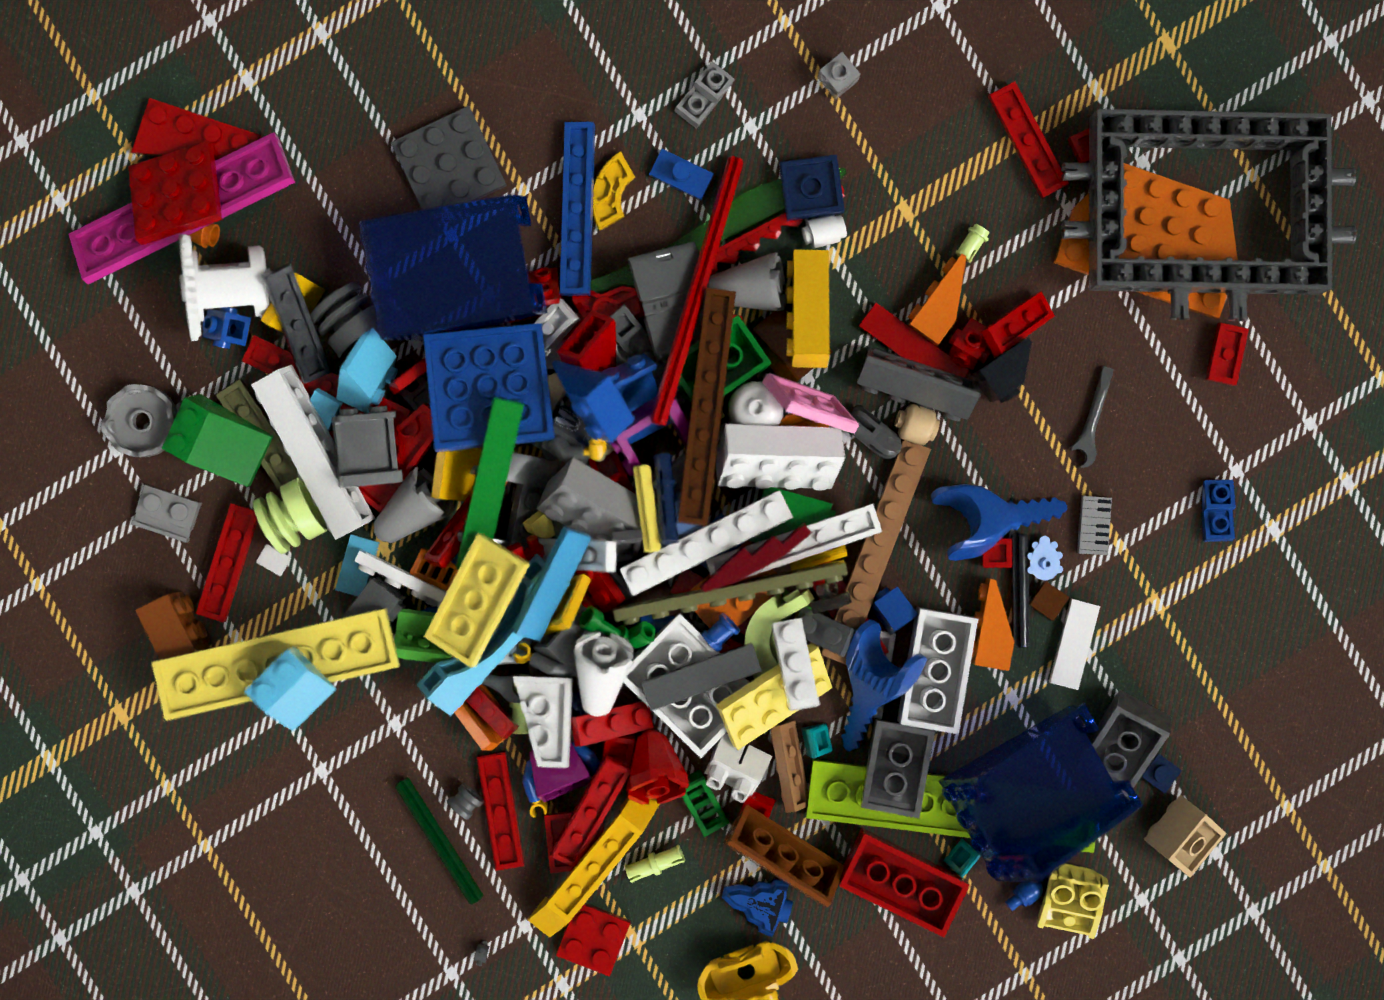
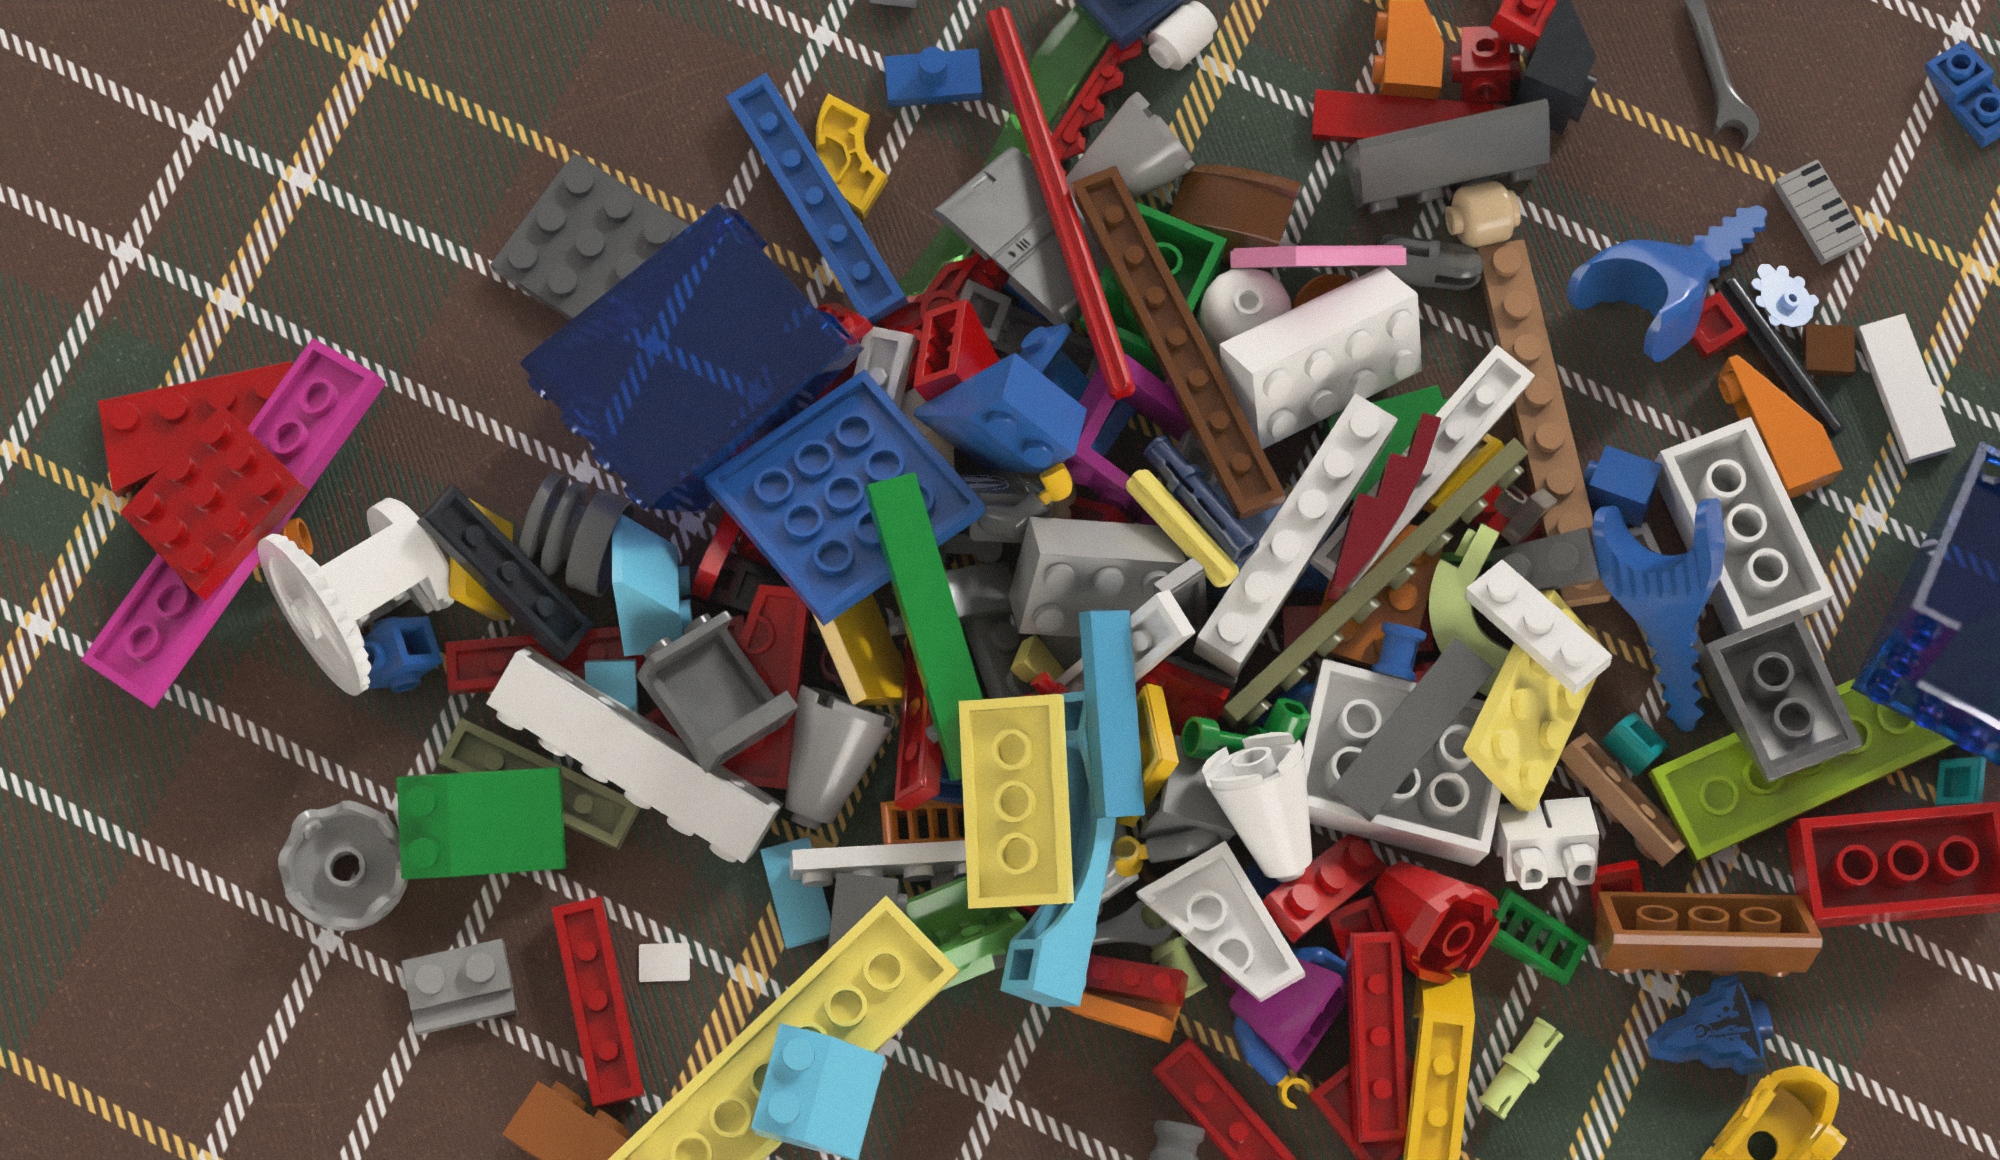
camera: 30 degrees left, 15 degrees down
(284, 518) = (655, 866): yellowish green wheel -> none
(809, 308) = (1232, 139): yellow brick -> none

